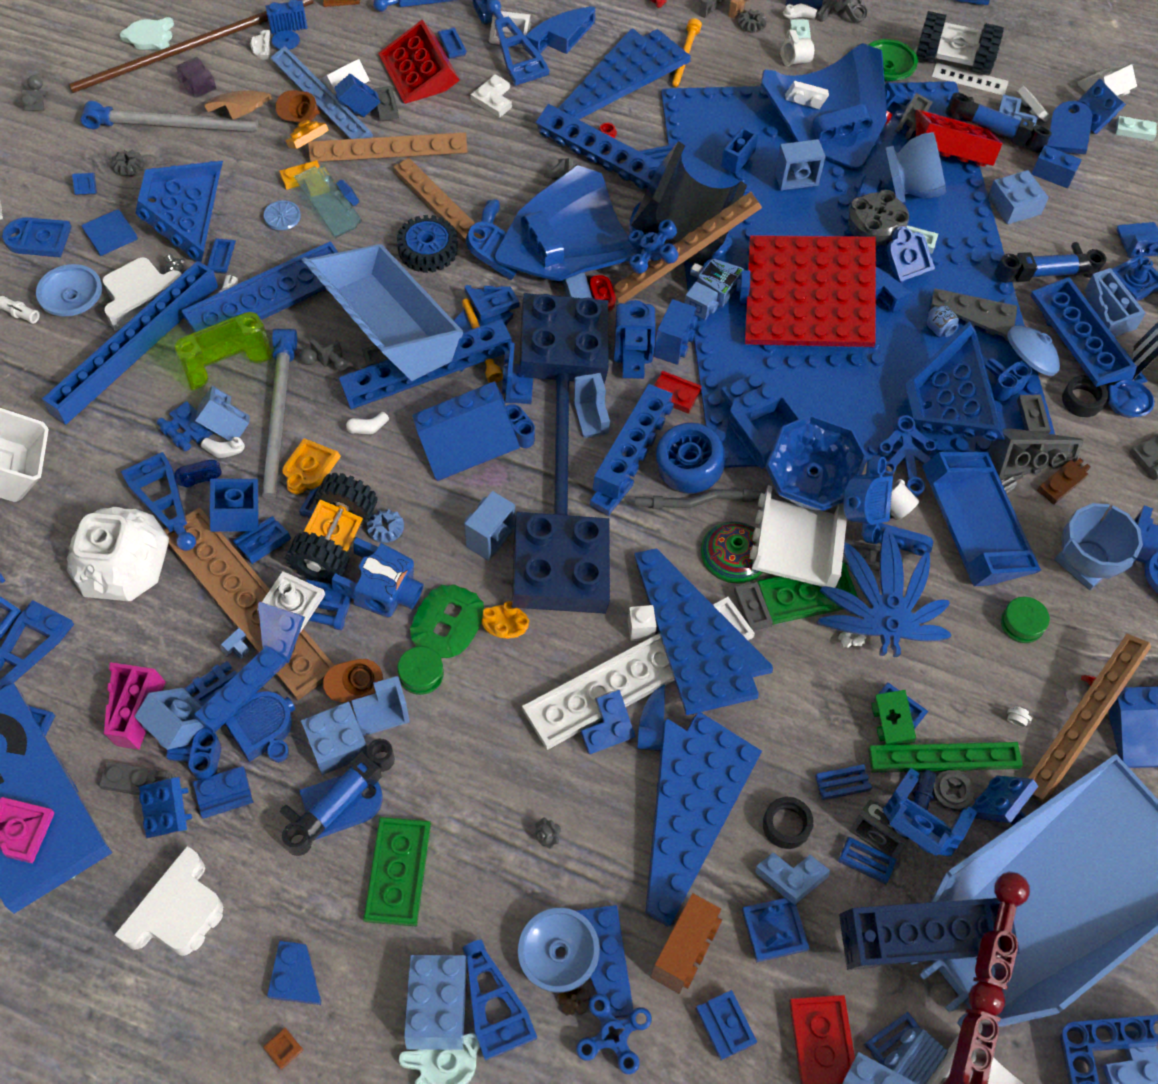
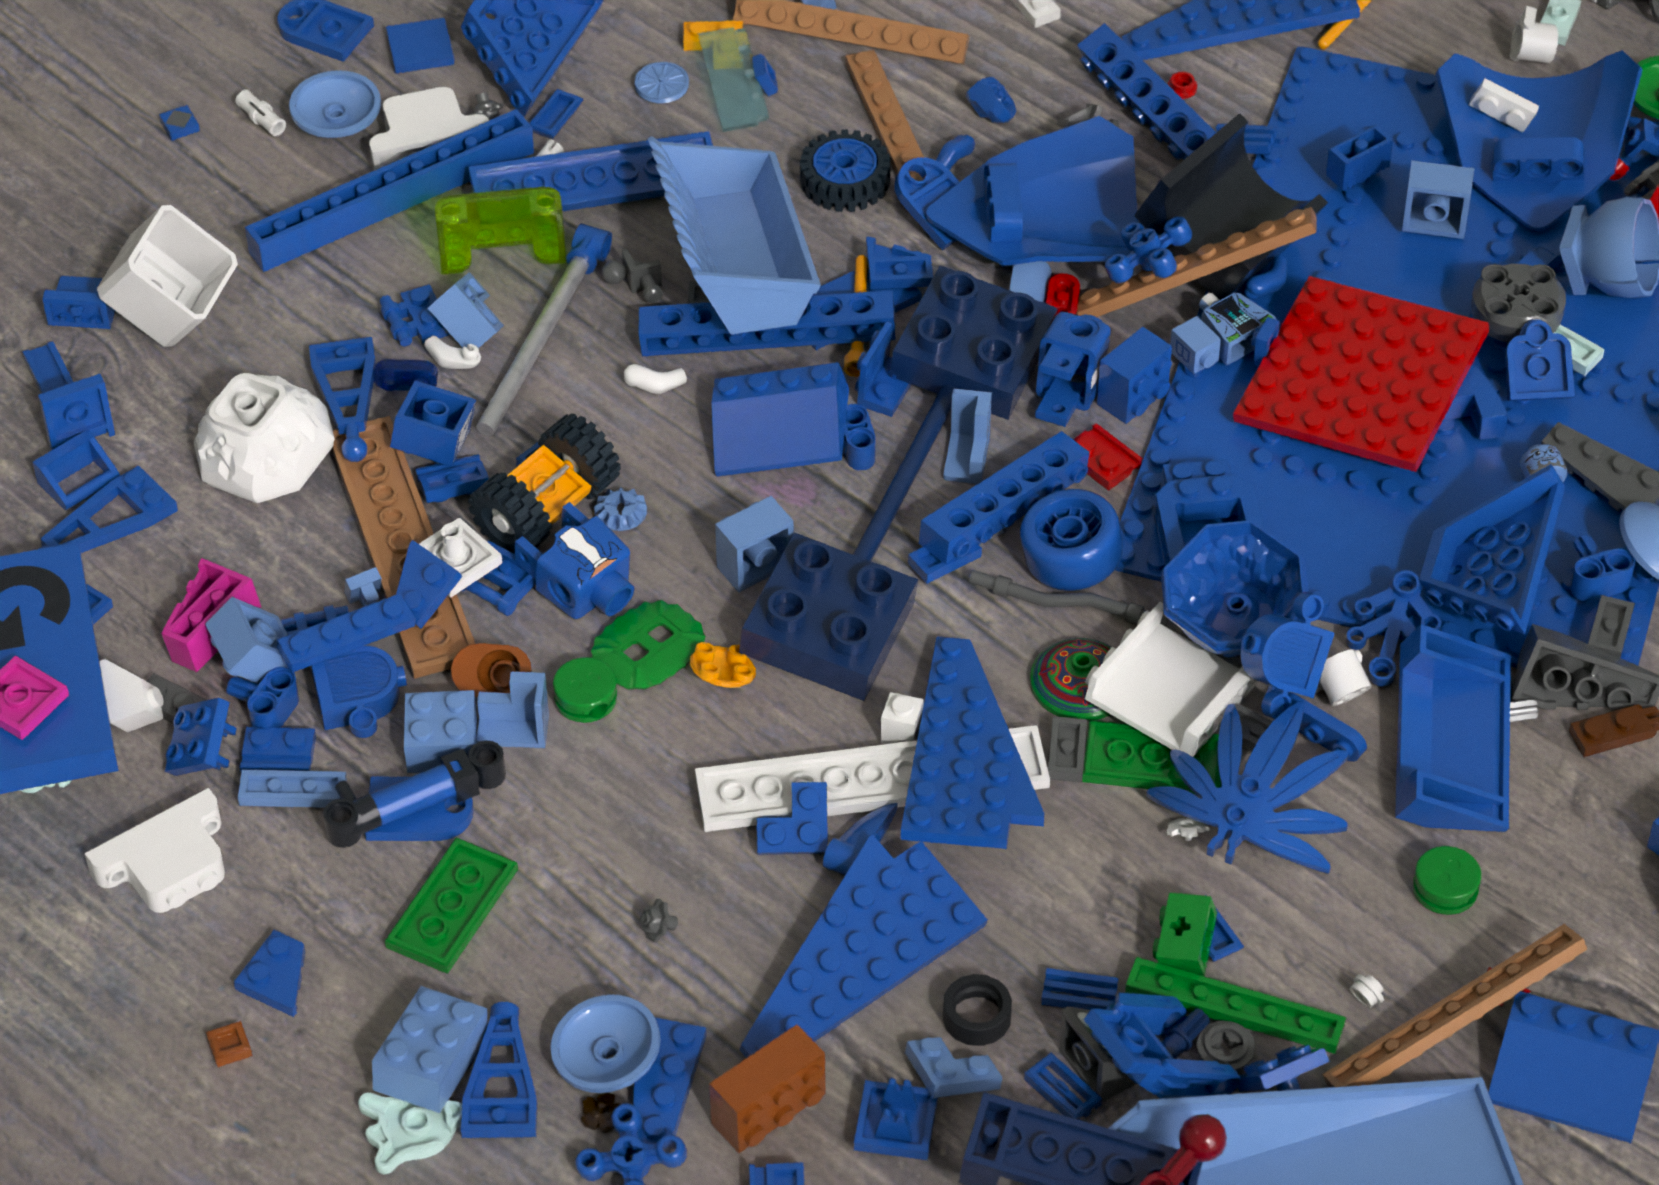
camera: 25 degrees right, 10 degrees down
(98, 790) = (130, 699): none -> white slope
(245, 820) = (288, 788): none -> medium blue plate
(309, 466) = (549, 403): light orange plate -> none
(498, 172) = (991, 100): none -> blue rock
(1097, 547) = (1592, 813): medium blue plate -> none

